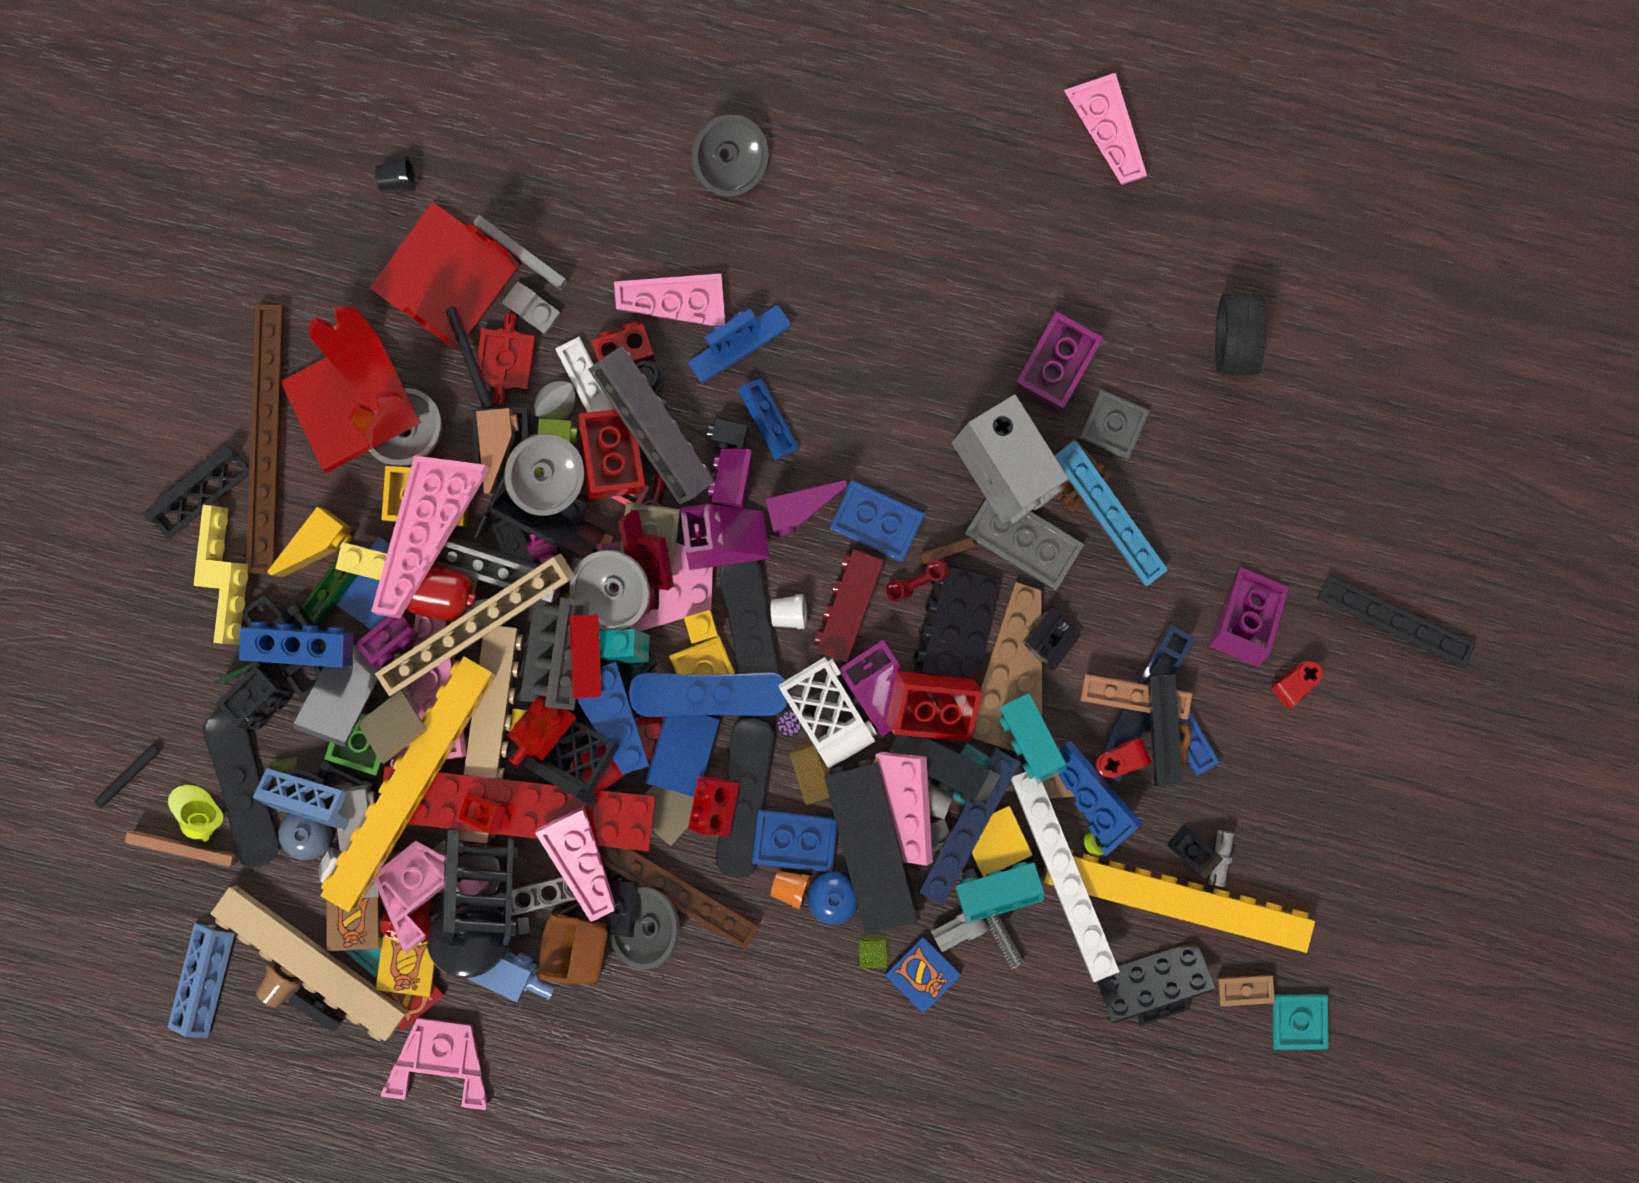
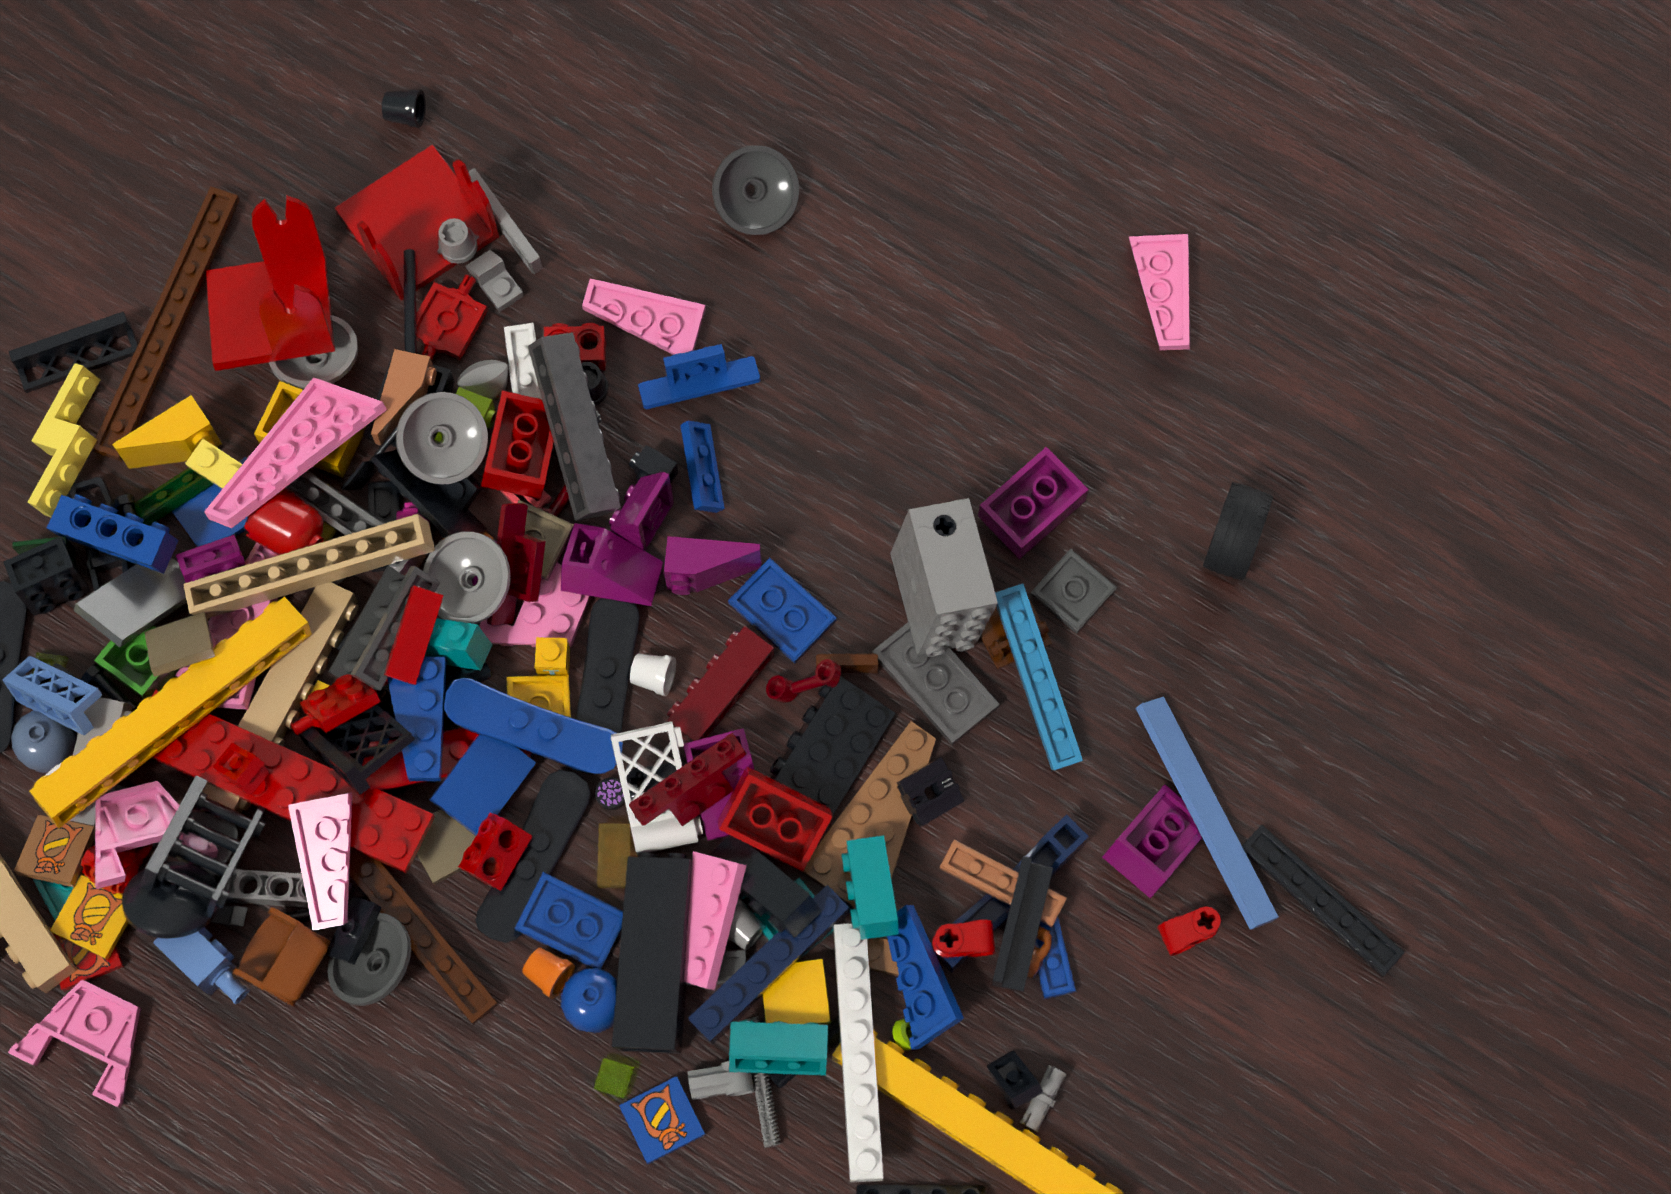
camera: 15 degrees right, 15 degrees down
(488, 287) = (456, 241): none -> light grey piece
(858, 703) = (691, 787): none -> dark red bracket
(1282, 580) = (1207, 813): none -> medium blue tile

